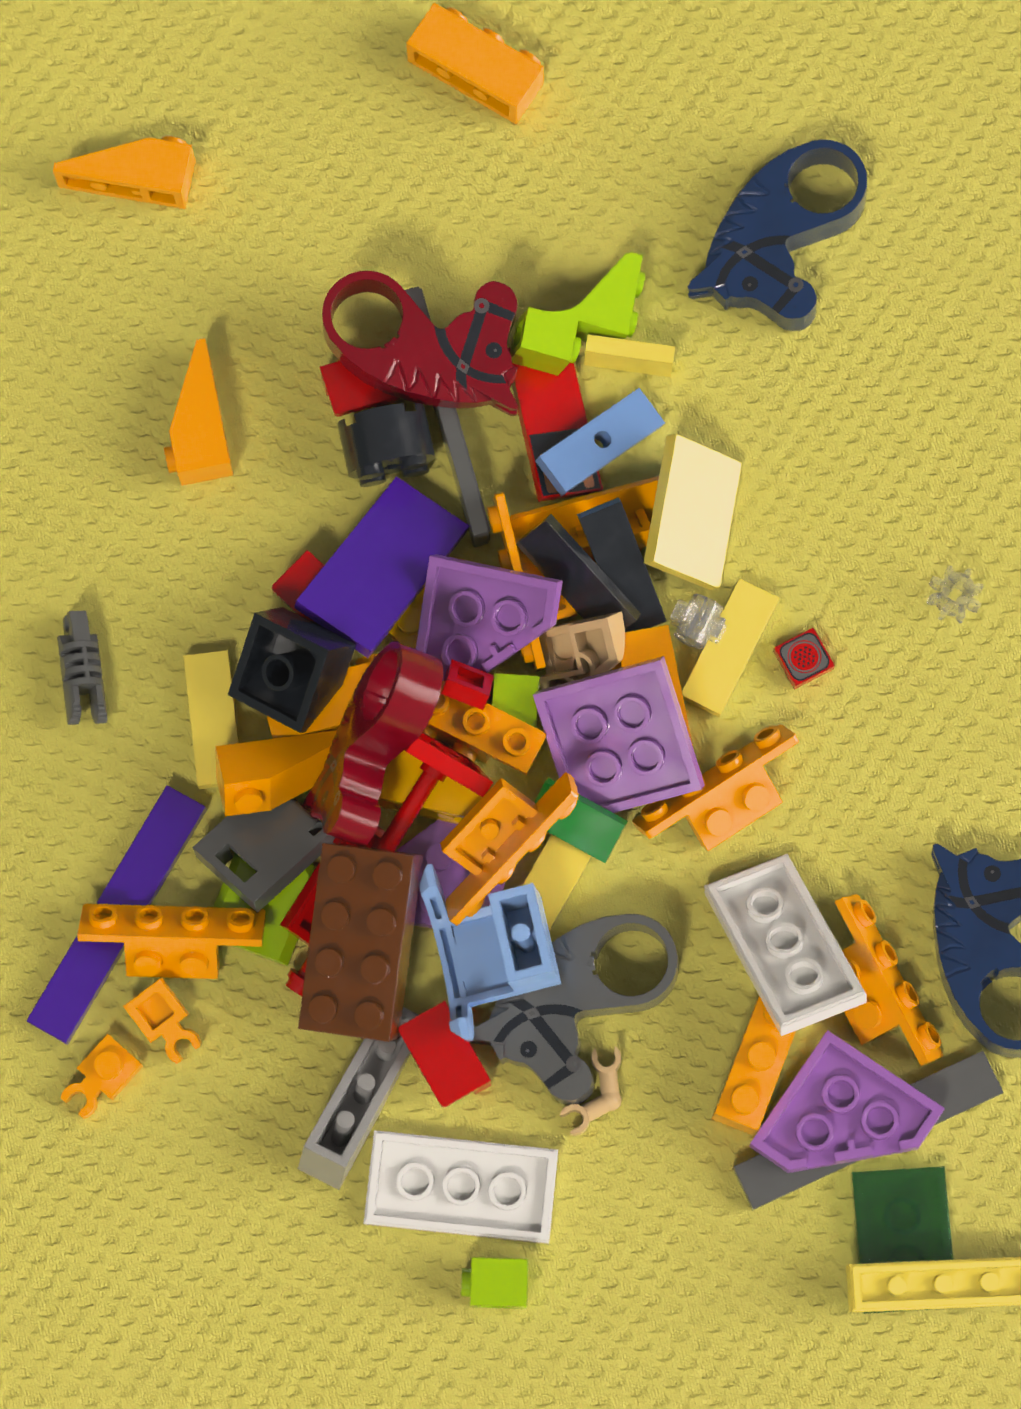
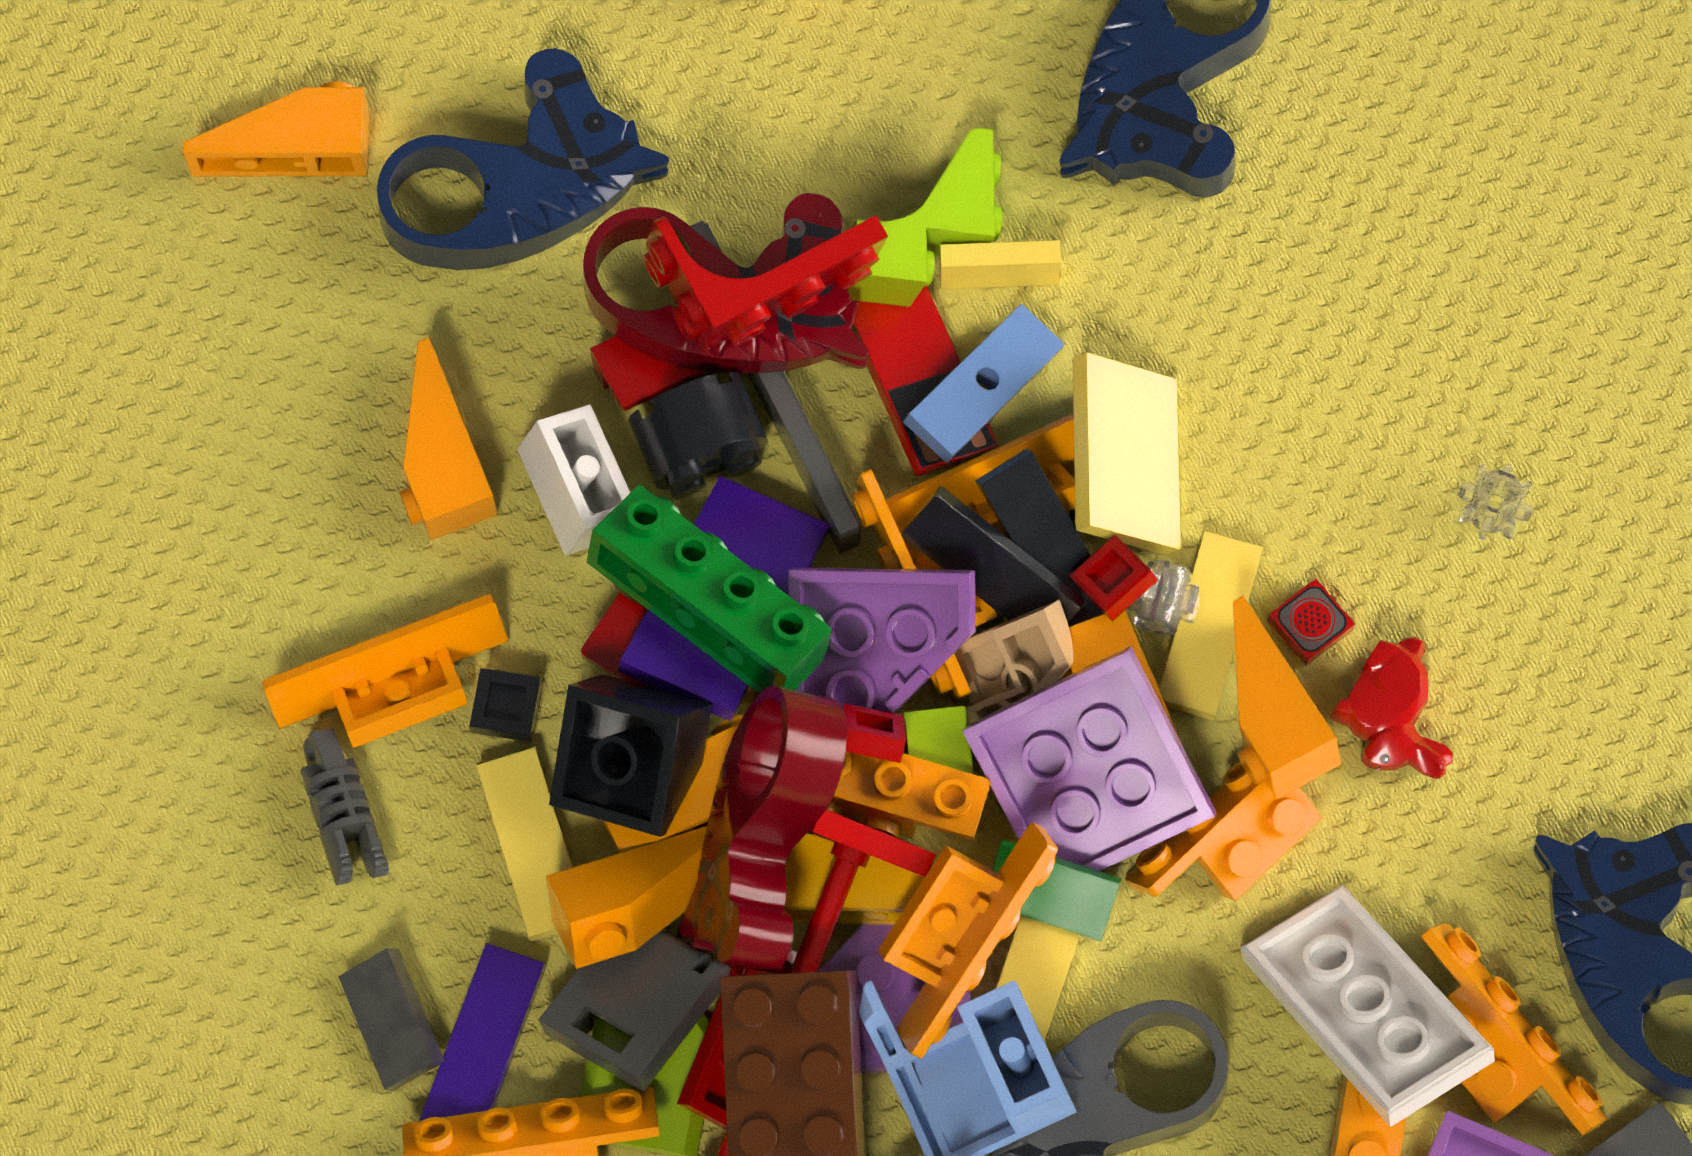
camera: 10 degrees left, 5 degrees down
(89, 827) = (391, 1019): none -> flat silver tile
(134, 581) = (390, 677): none -> light orange bracket
(212, 615) = (505, 705): none -> black plate
(293, 461) = (573, 474): none -> white brick
(305, 243) = (535, 193): none -> dark blue animal
(368, 563) = (708, 593): none -> green brick
(428, 360) = (735, 309): none -> red bracket
(664, 602) = (1113, 578): none -> red tile
(759, 724) = (1278, 721): none -> light orange slope
(844, 731) = (1387, 706): none -> red animal

